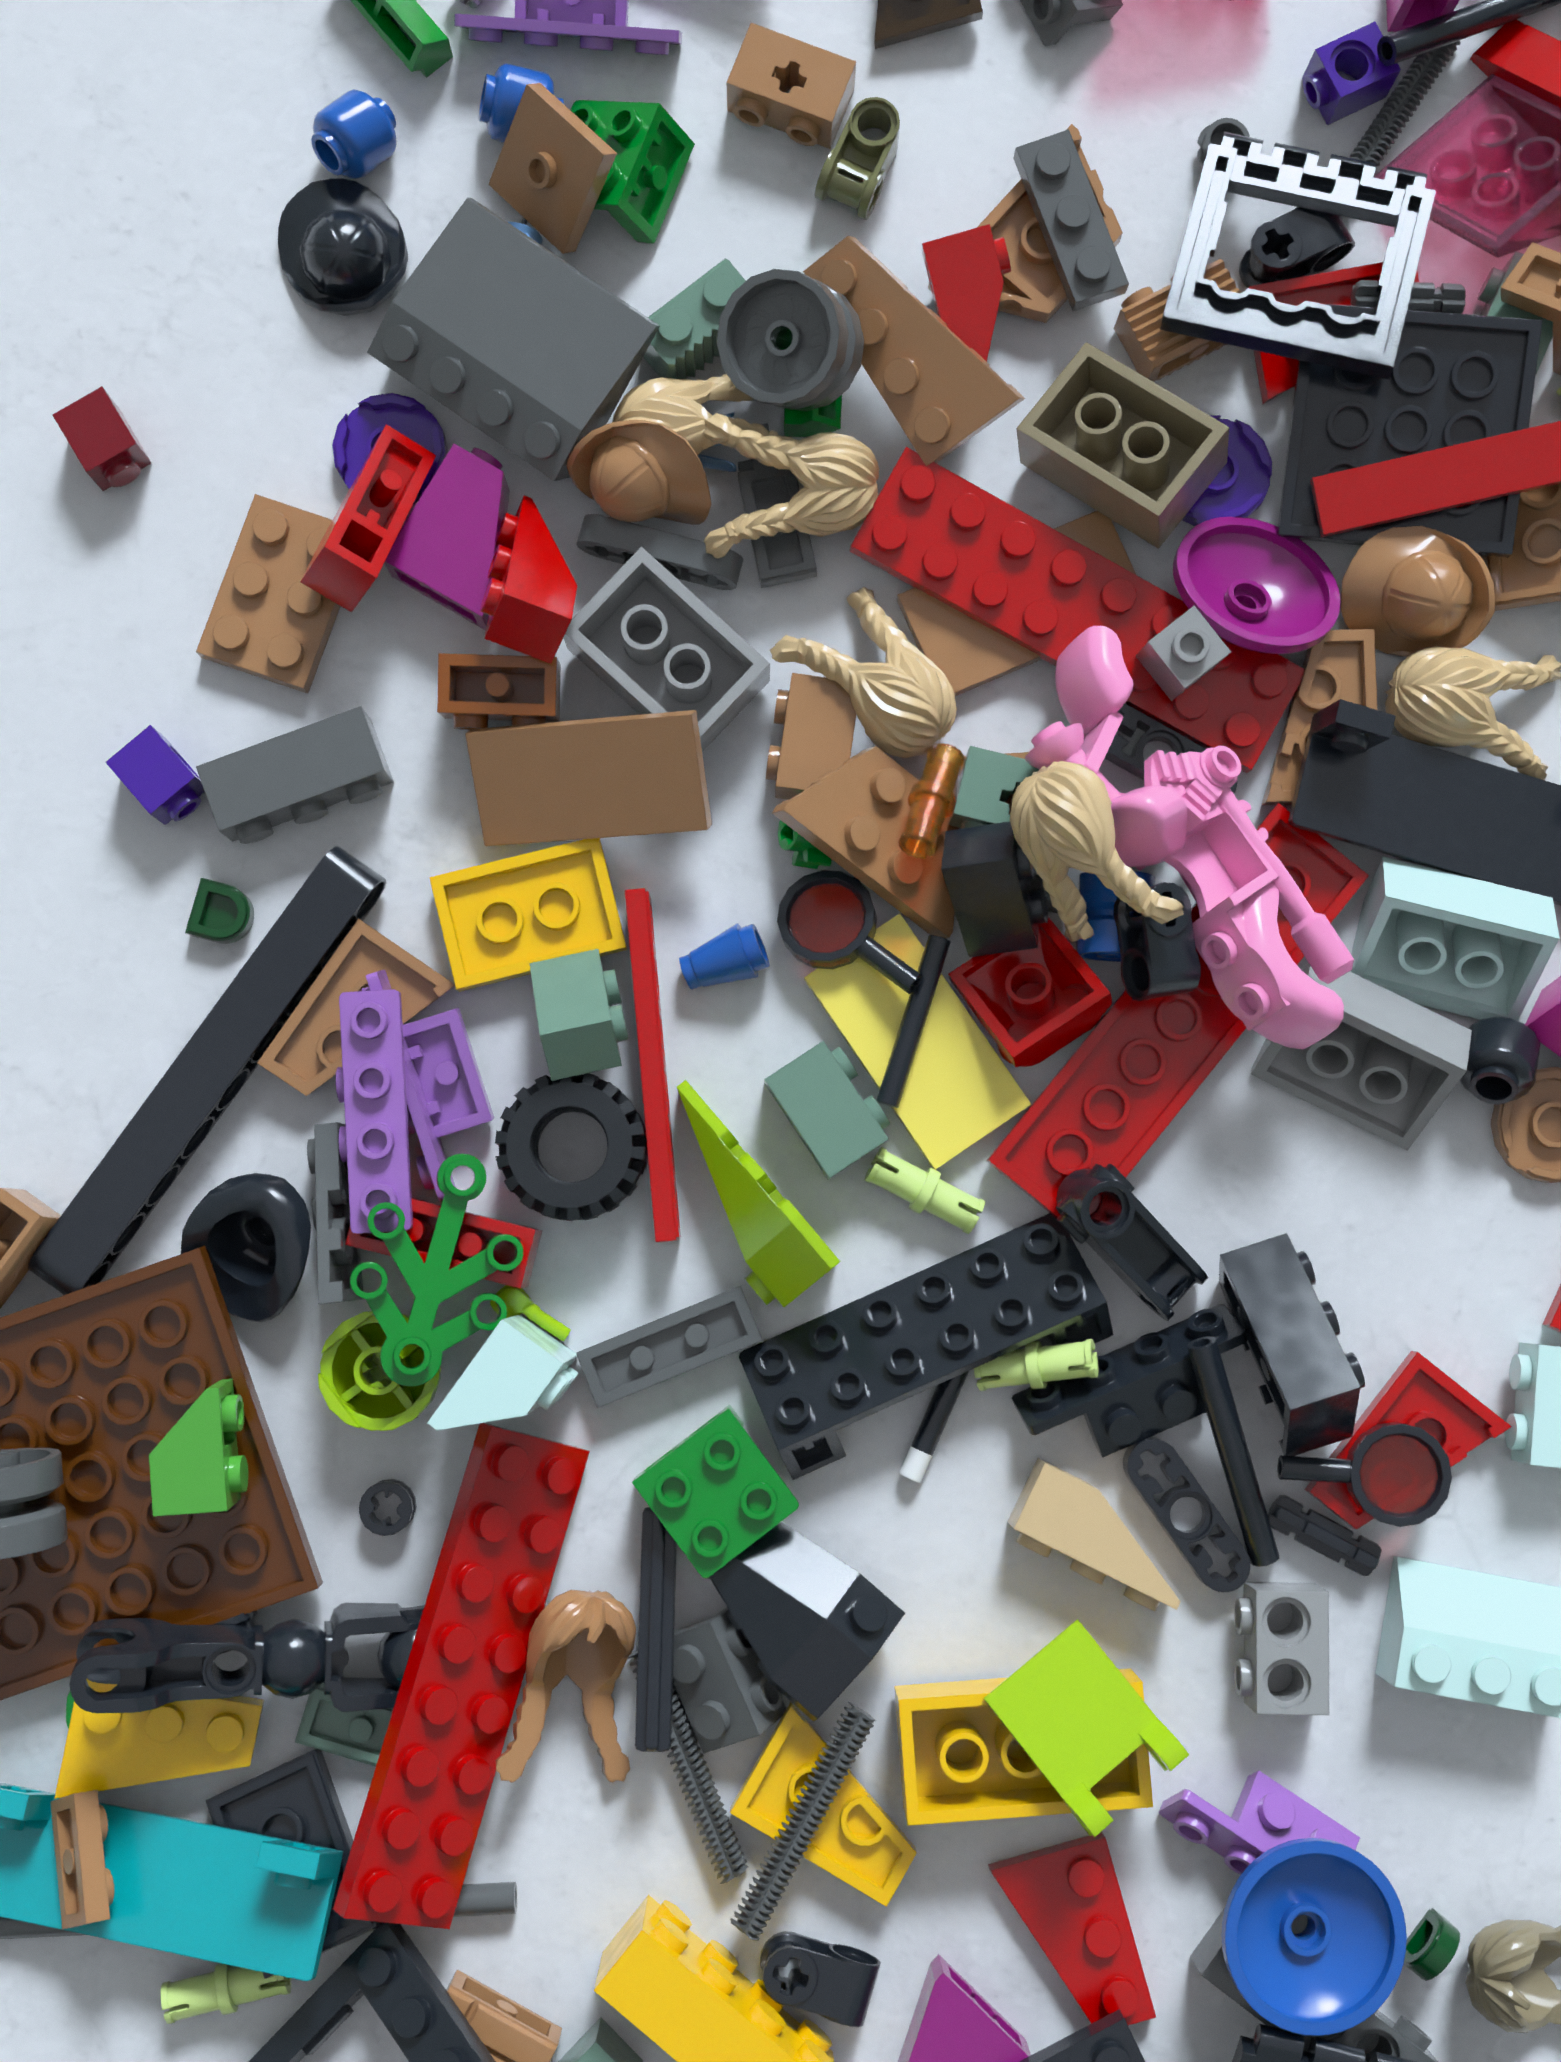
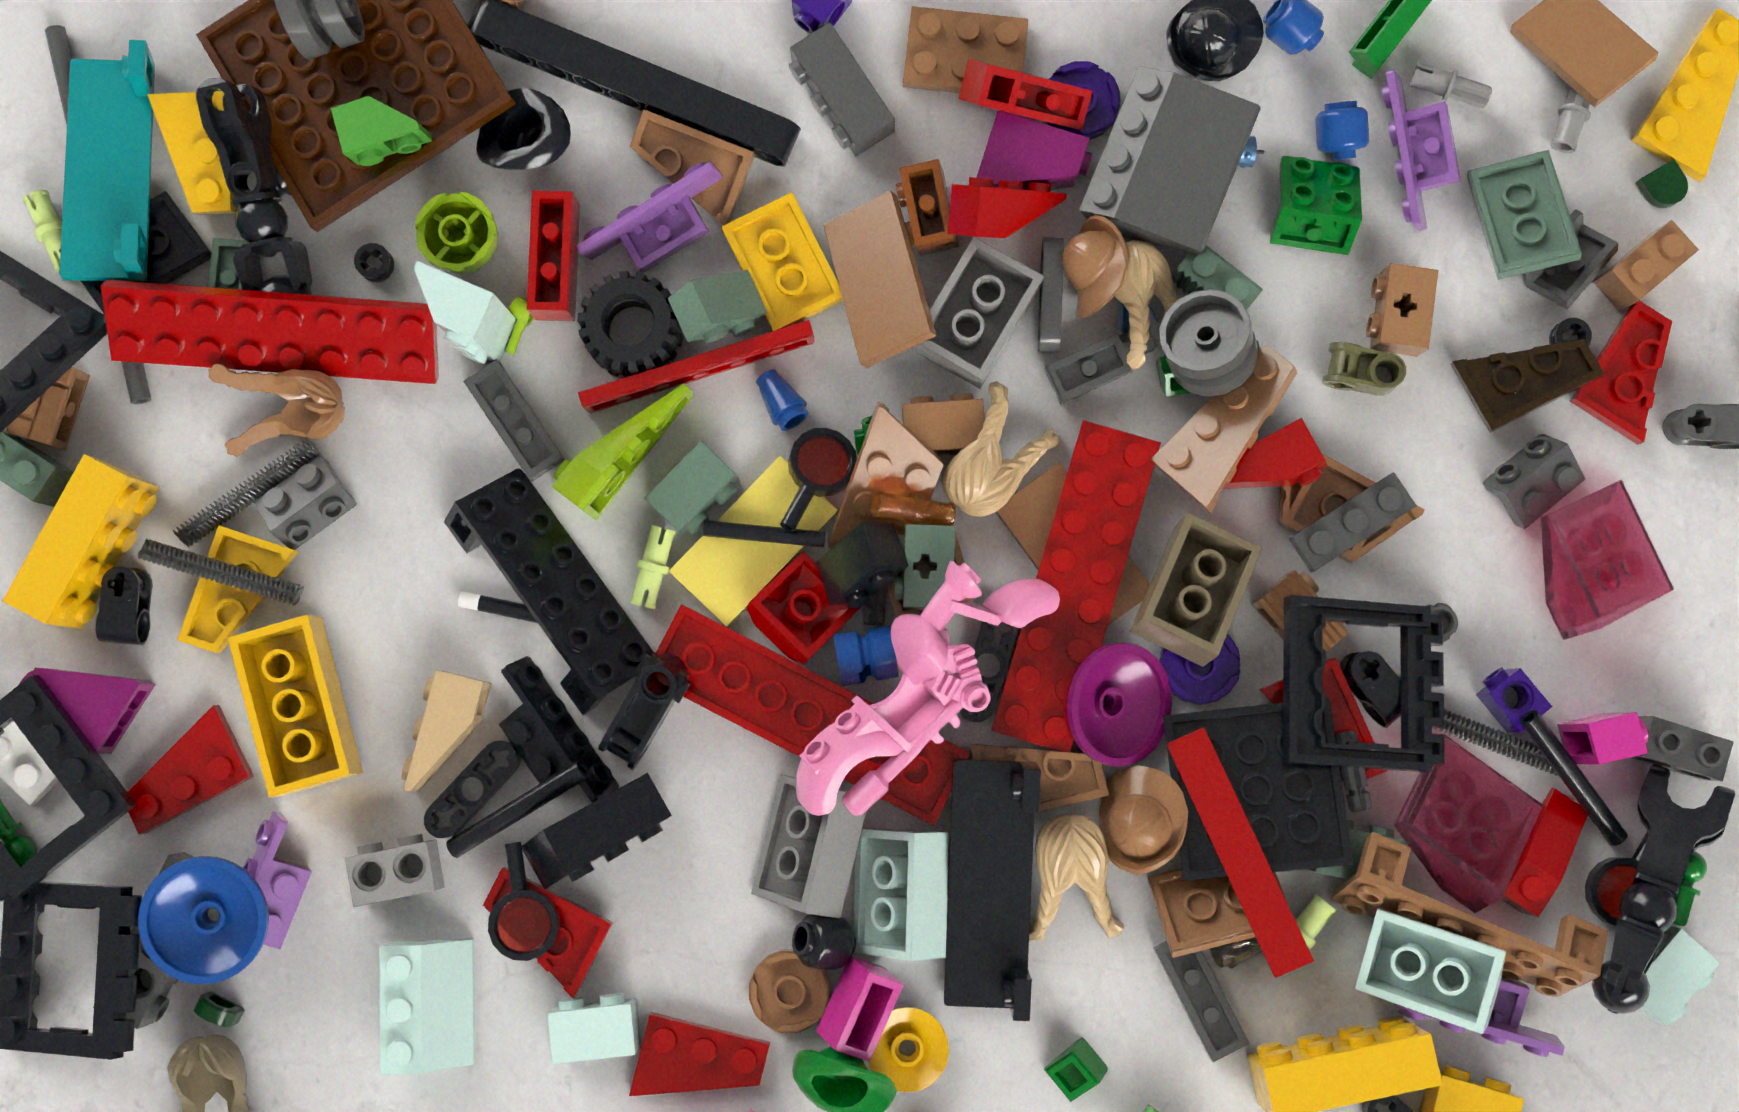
camera: 85 degrees right, 0 degrees up
(83, 1880) = (97, 123): medium nougat plate -> none
(220, 913) = (741, 64): dark green tile -> none
(332, 1217) = (514, 191): dark grey wing -> none
(375, 1108) = (622, 188): medium lavender bracket -> none
(433, 1280) = (517, 249): green plant -> none
(552, 168) = (1298, 158): medium nougat plate -> none
(655, 1636) = (326, 450): black axle -> none
(716, 1492) = (421, 468): green bracket -> none
(805, 1616) = (362, 532): black wedge -> none
(832, 467) = (1130, 394): tan hair -> none
(1039, 1365) = (549, 666): yellowish green pin -> none
(1066, 822) = (902, 595): tan hair -> none
(1079, 1720) = (314, 735): lime flag -> none
(1156, 956) = (841, 683): black piece -> none
(1182, 653) = (1054, 659): light grey brick -> none
(1324, 1535) = (476, 885): black axle -> none

